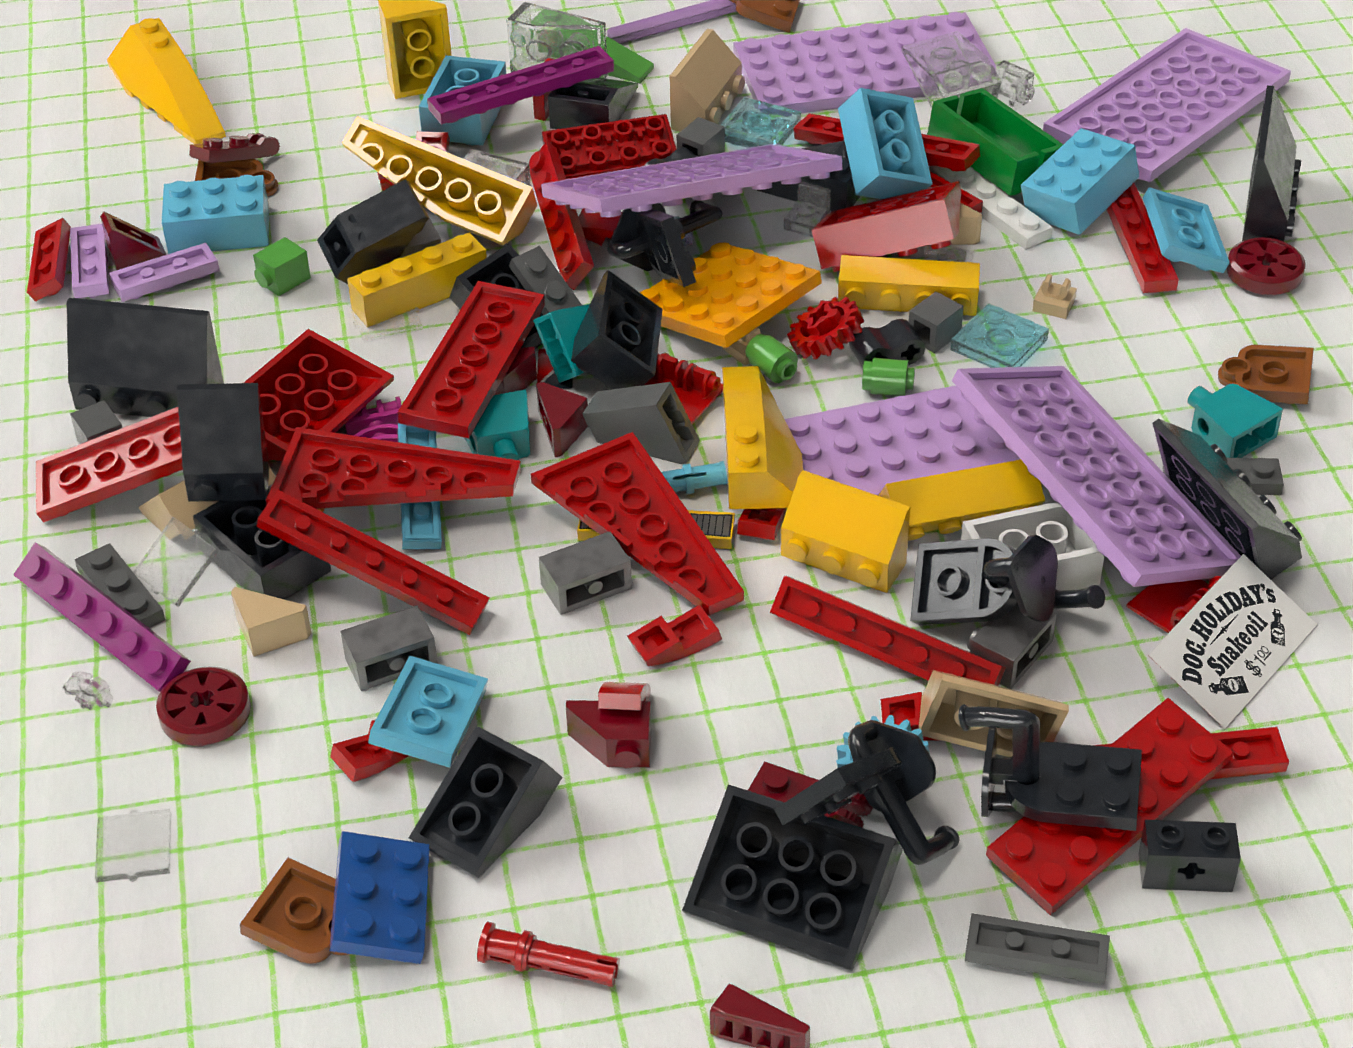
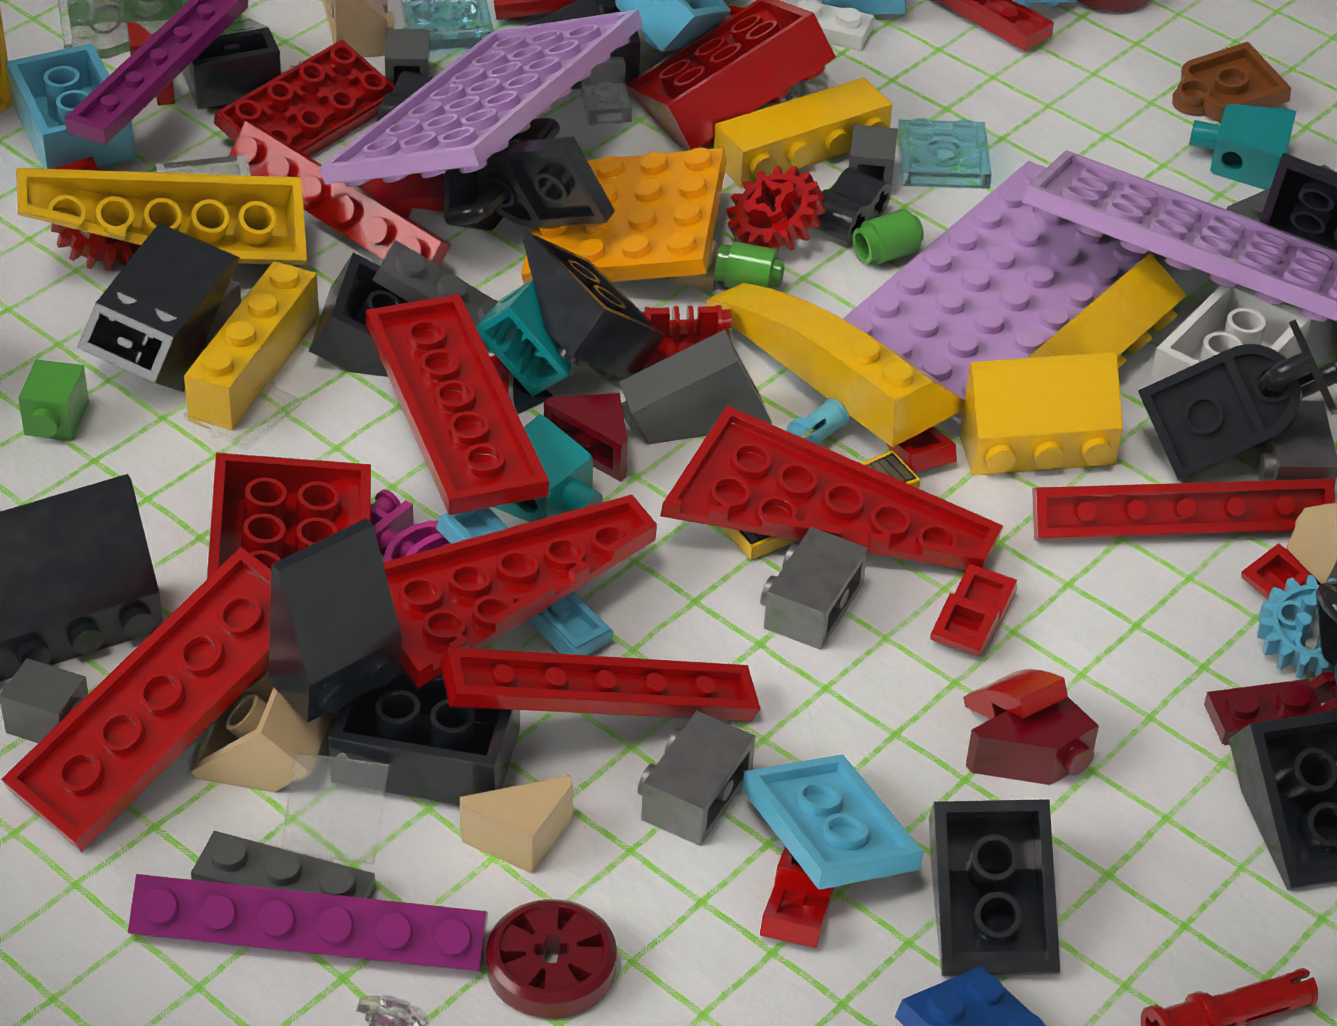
camera: 40 degrees left, 0 degrees up
(1054, 298) = (951, 89): tan tile -> none

